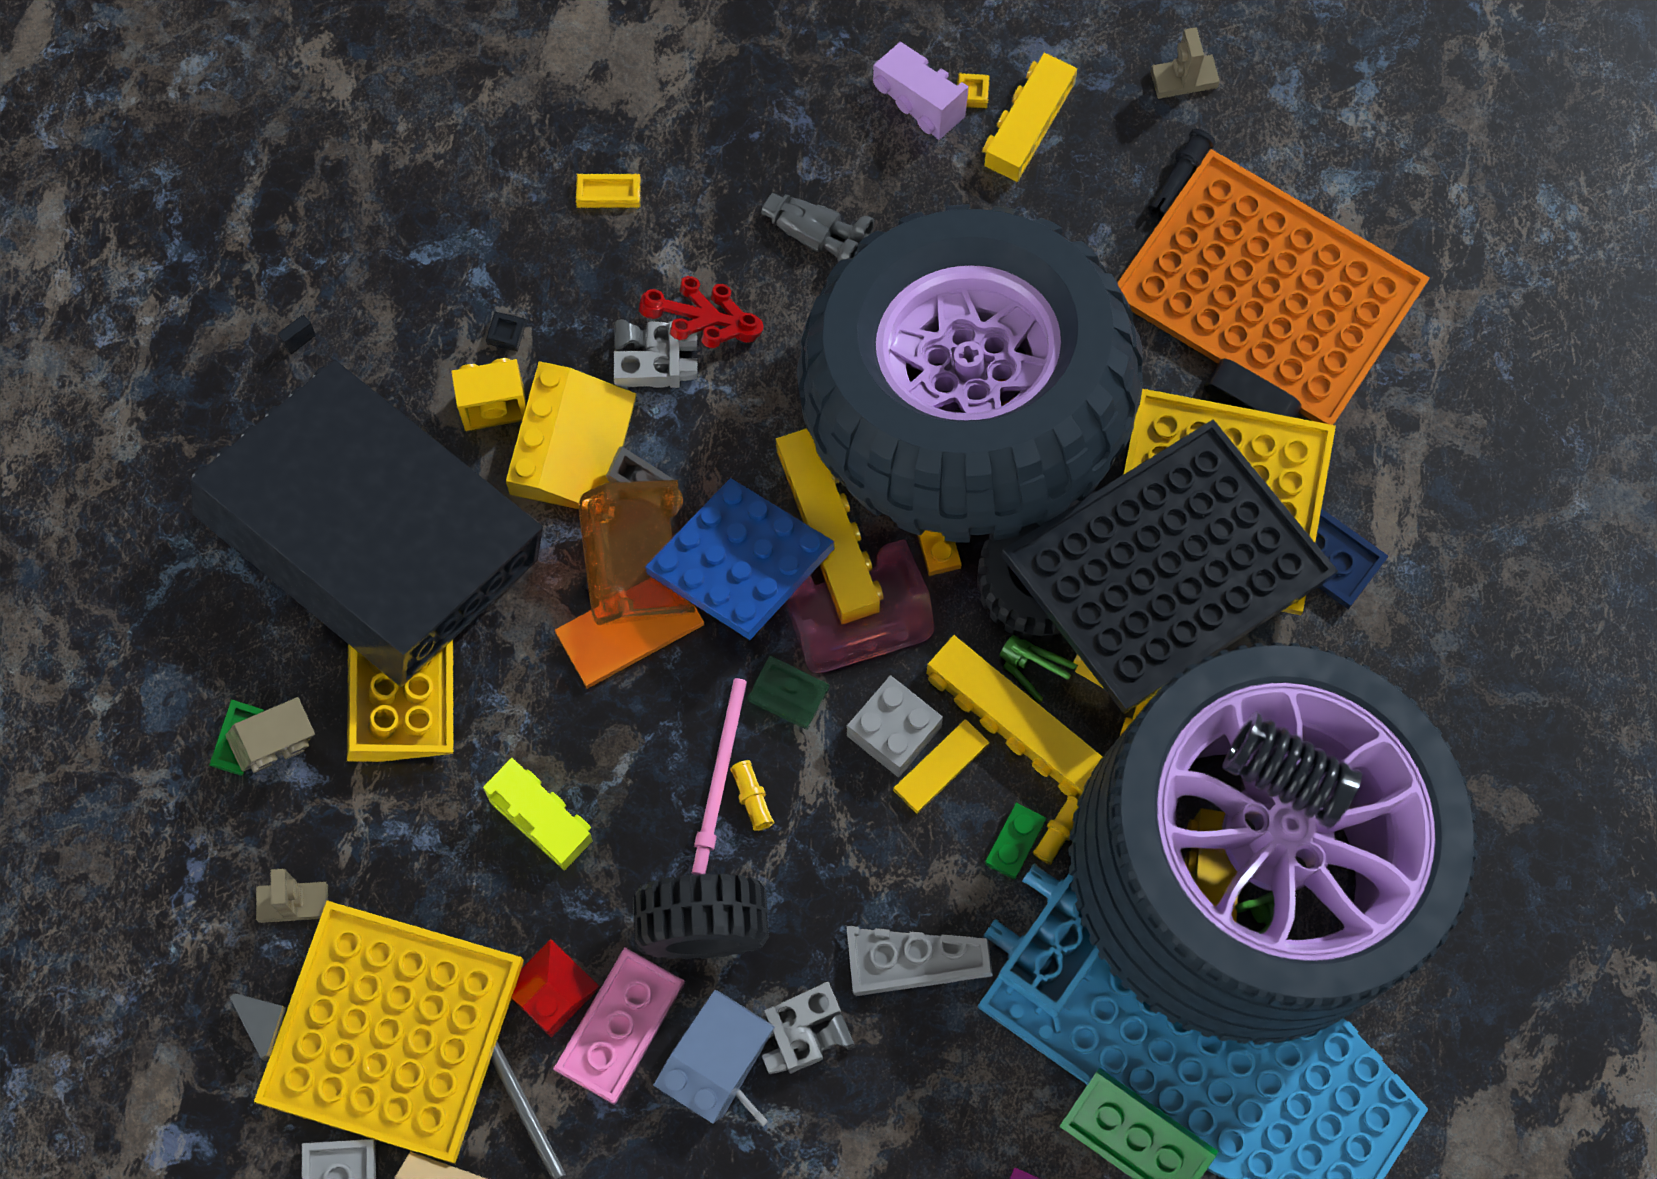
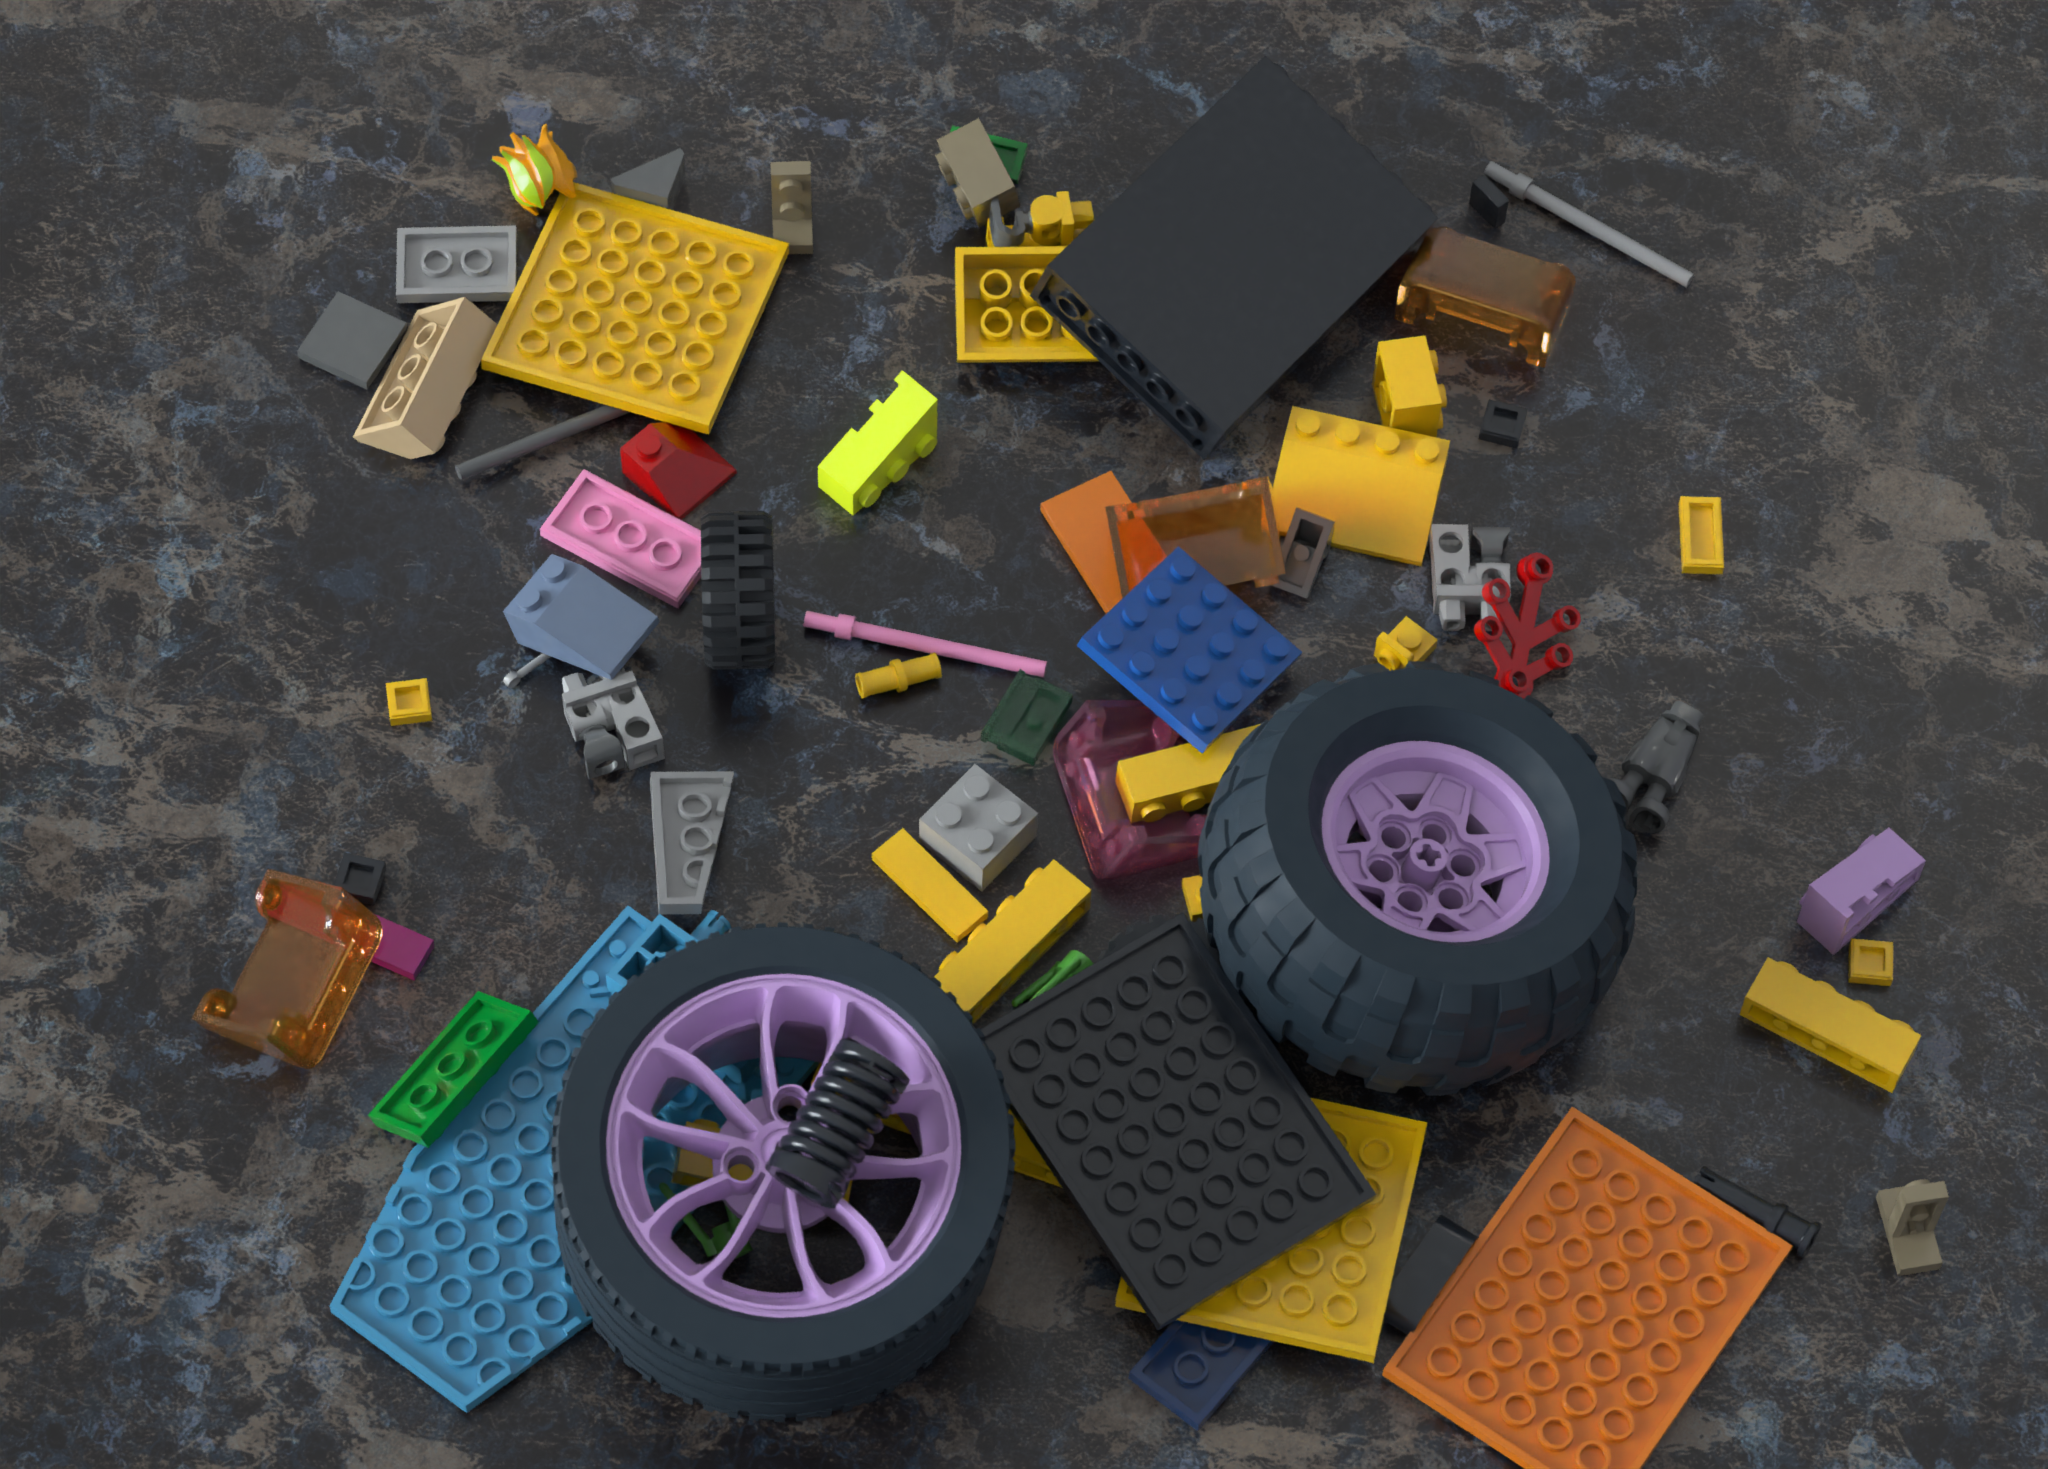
camera: 90 degrees right, 10 degrees down
(249, 1125) = (536, 170): none -> light orange hair
(281, 309) = (1523, 187): none -> light grey bar
(322, 677) = (1048, 223): none -> yellow hips
(390, 330) = (1487, 288): none -> clear orange windscreen
(715, 407) = (1404, 644): none -> yellow bracket

